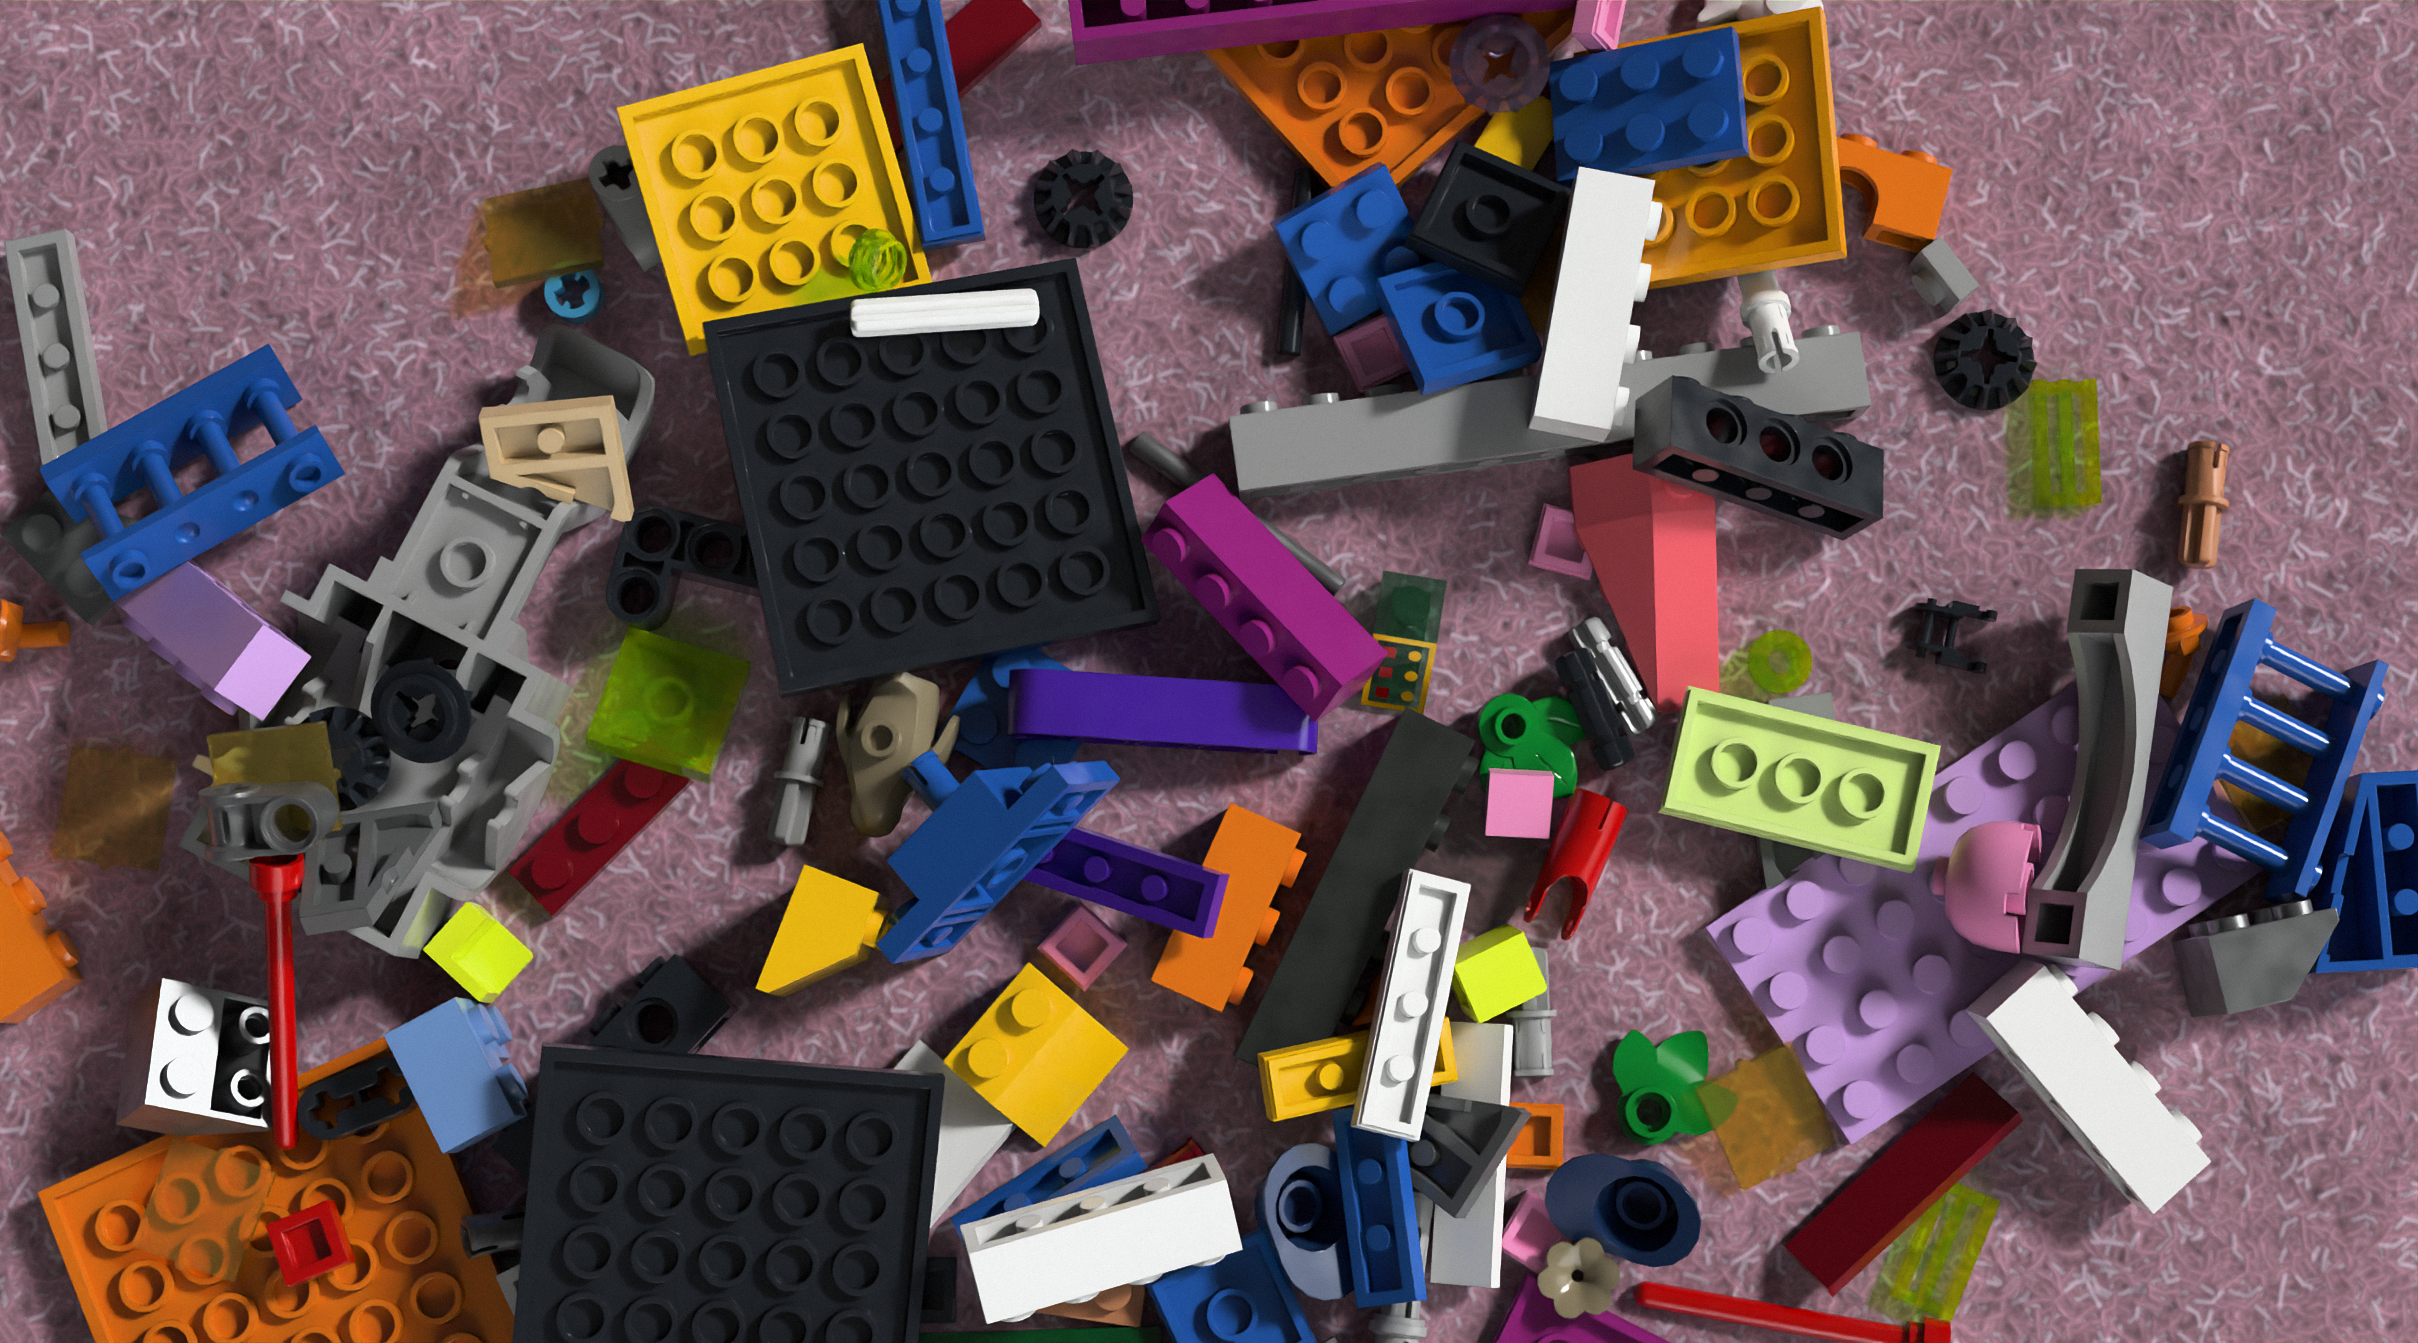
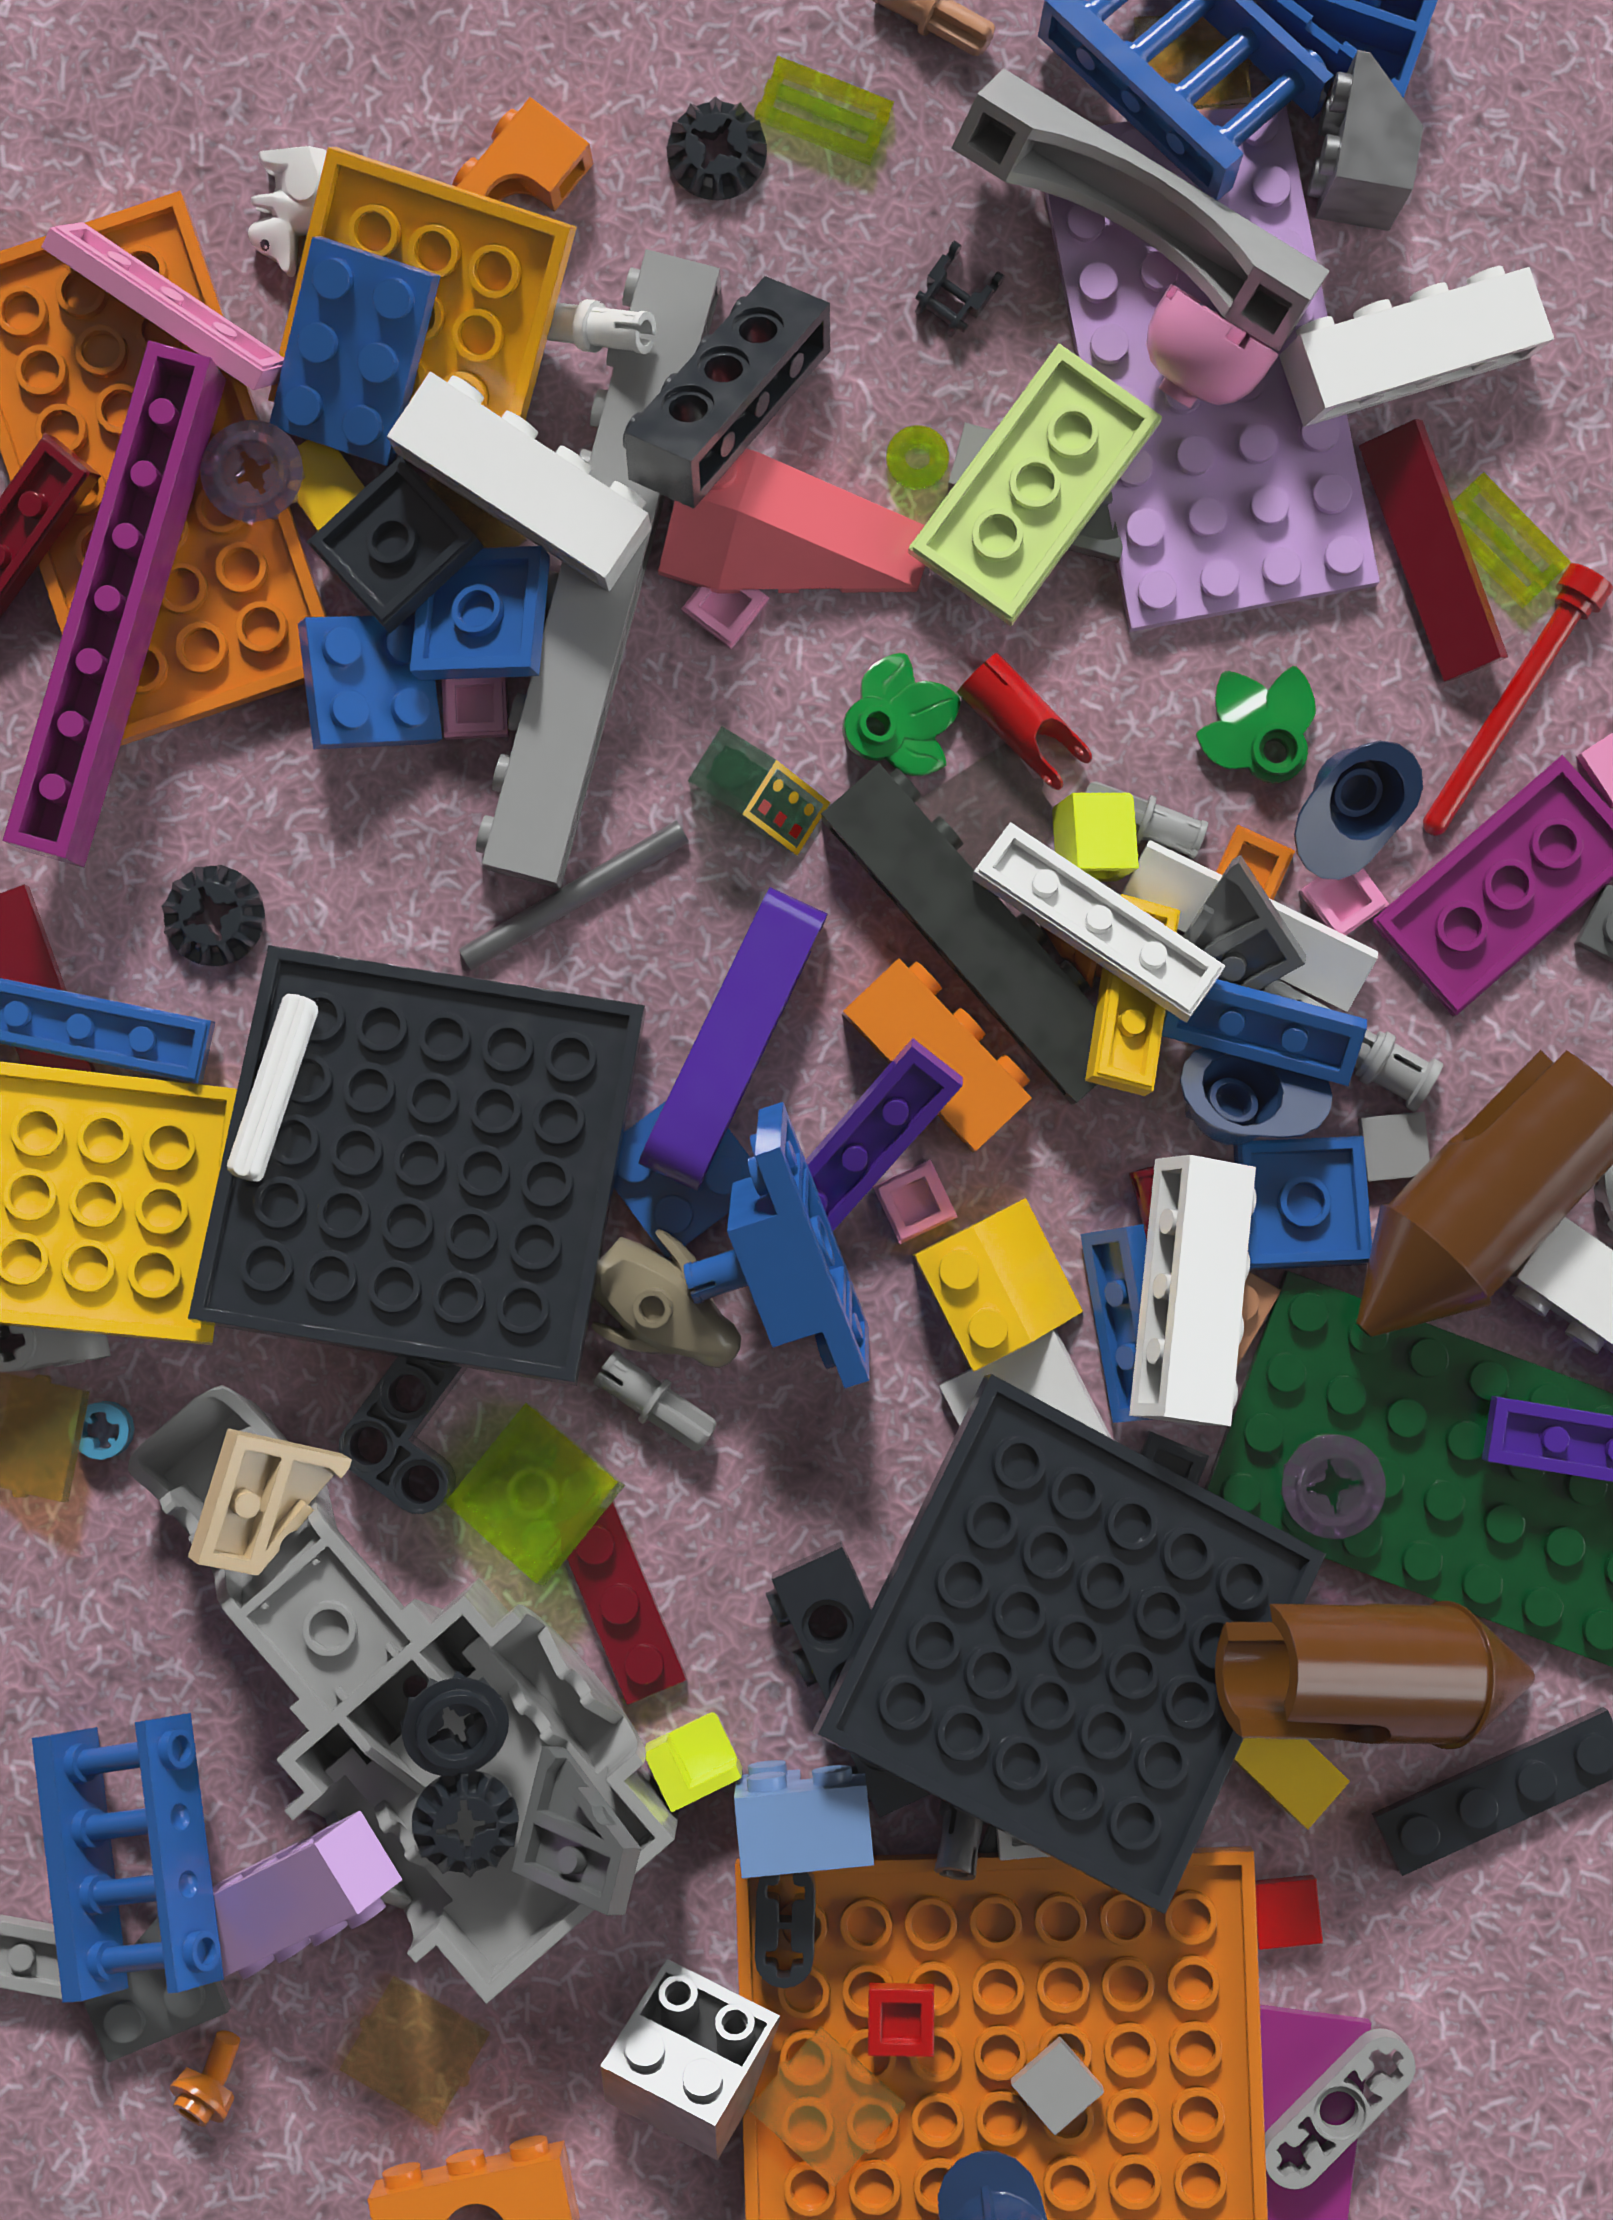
camera: 70 degrees left, 5 degrees up
(255, 822) = (494, 1923): flat silver piece -> none
(276, 756) = (464, 1890): clear yellow piece -> none
(277, 885) = (558, 1922): red piece -> none
(823, 932) = (808, 1431): yellow slope -> none
(876, 261) = (196, 1131): clear neon green plate -> none
(1263, 596) = (664, 901): magenta brick -> none
(1293, 296) = (387, 757): black bar -> none
(1518, 803) = (949, 749): bright pink tile -> none
(1586, 1293) = (1413, 876): dark tan plant -> none
(1594, 709) = (891, 643): black axle -> none
(1620, 681) = (868, 613): light grey axle -> none
(1765, 1115) = (1321, 647): clear yellow piece -> none
(1941, 276) = (624, 152): light grey plate -> none
(2181, 643) = (1054, 82): orange plate -> none

